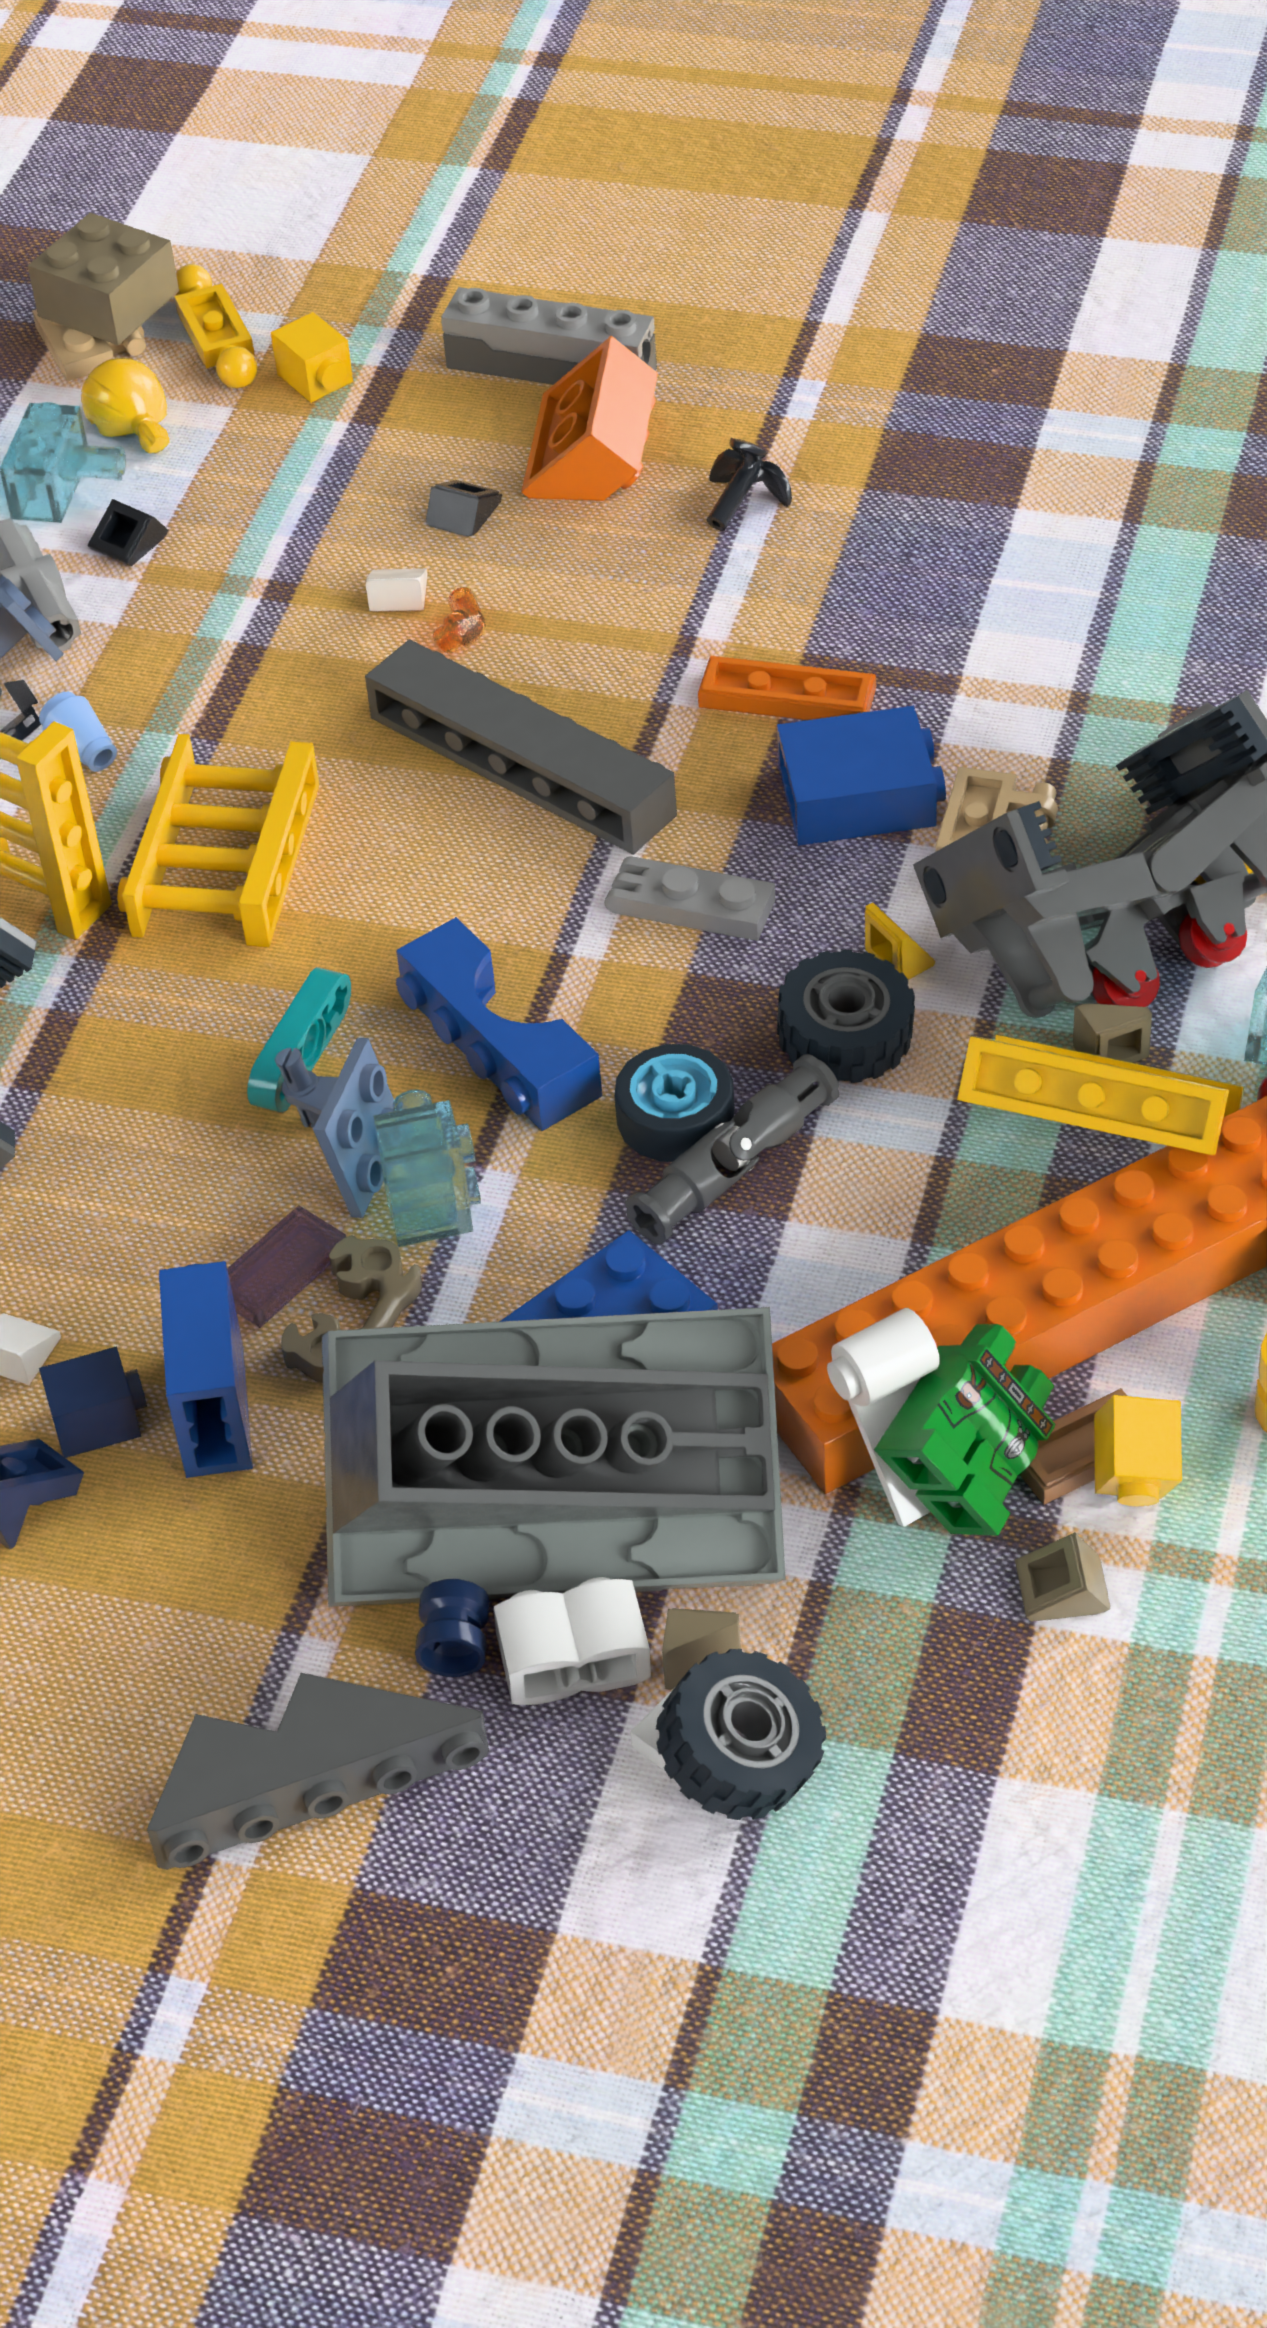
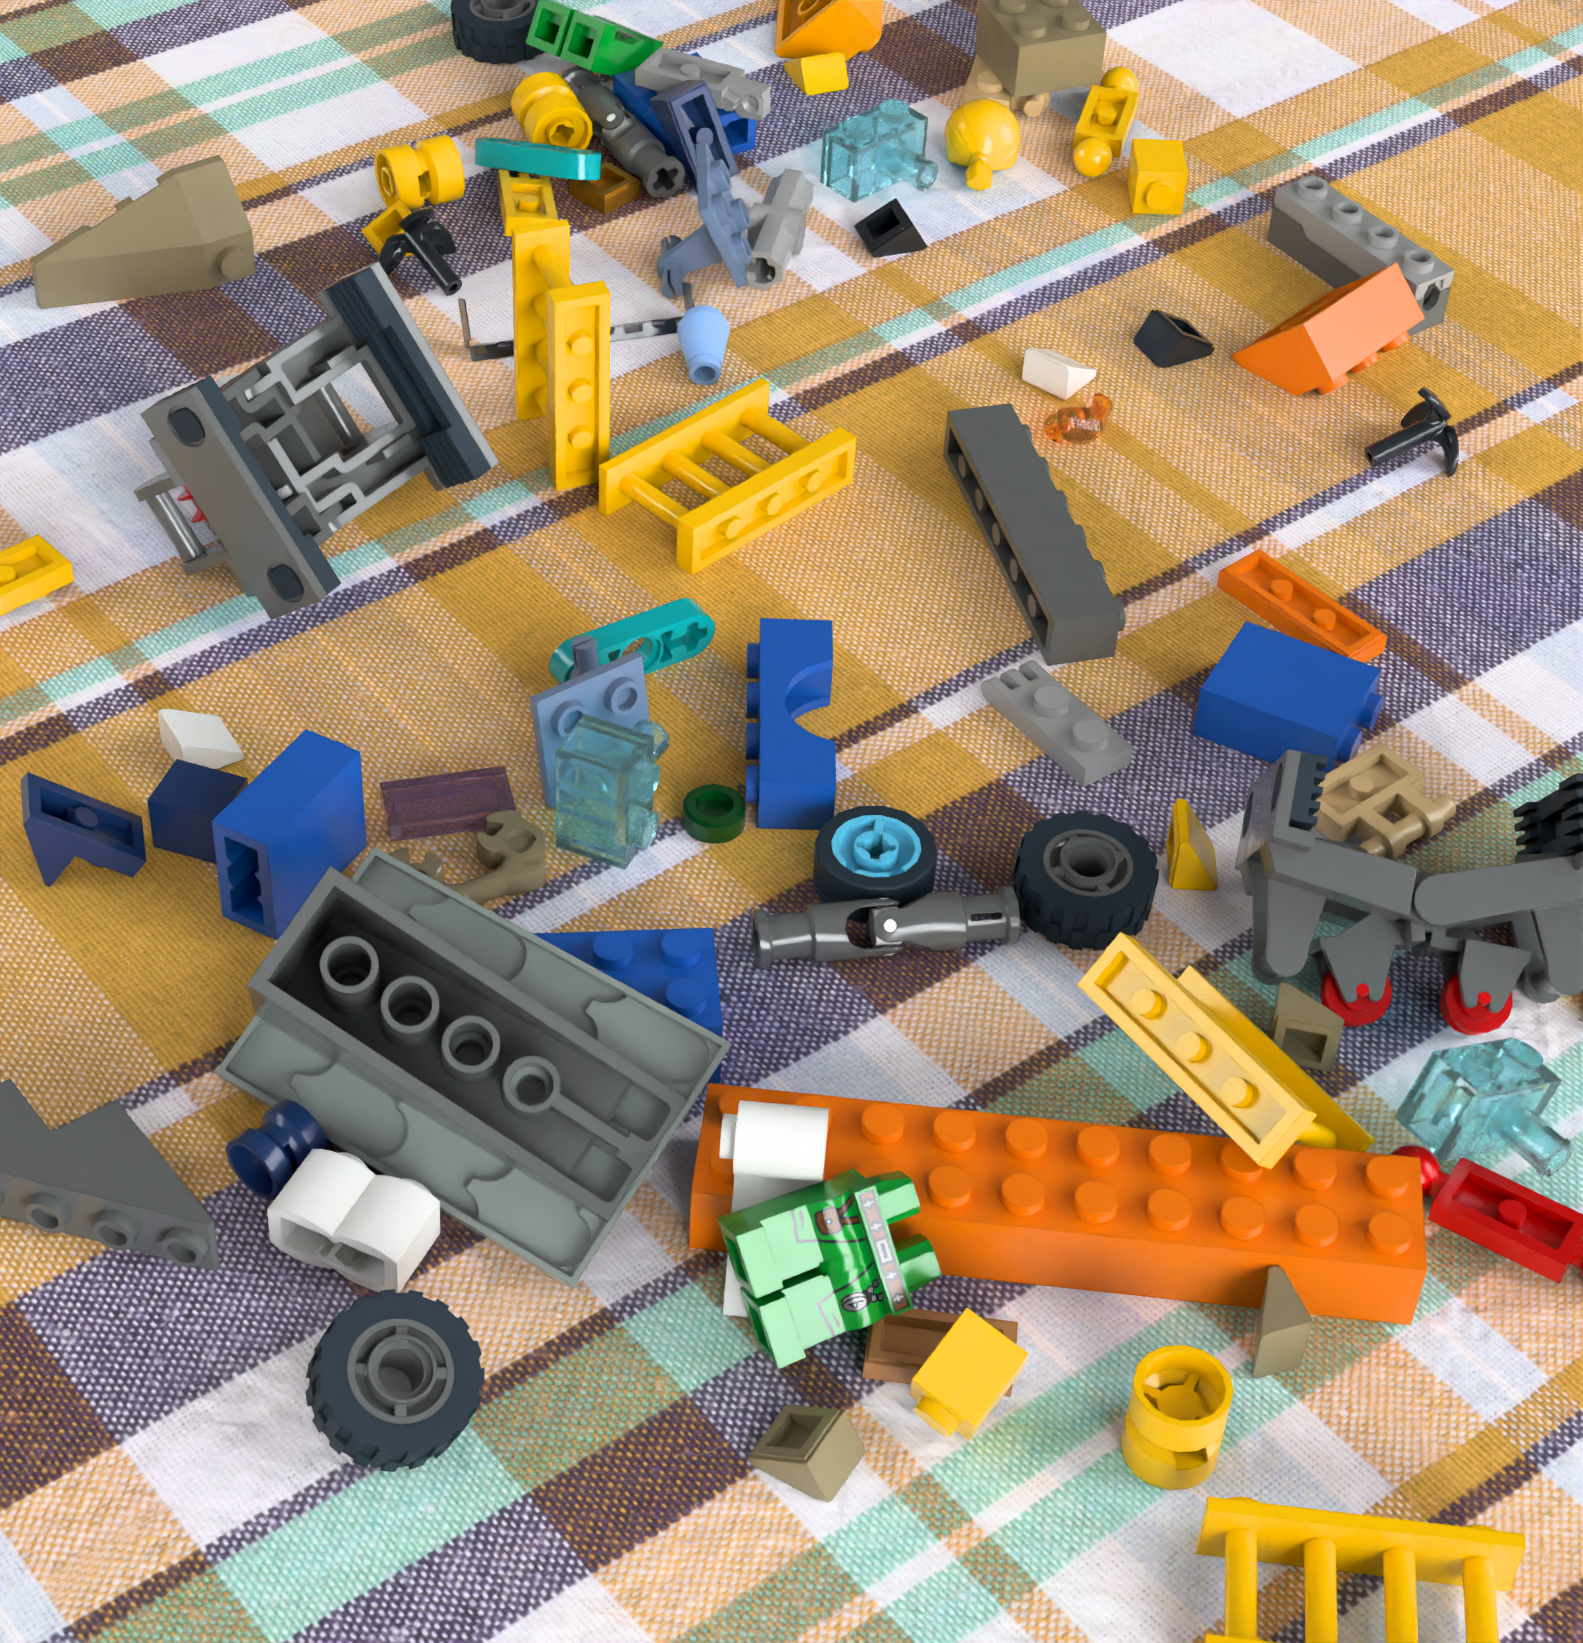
camera: 30 degrees right, 5 degrees down
(502, 1140) = (714, 813): none -> dark green tile
(694, 1635) = (452, 1280): dark tan slope -> none

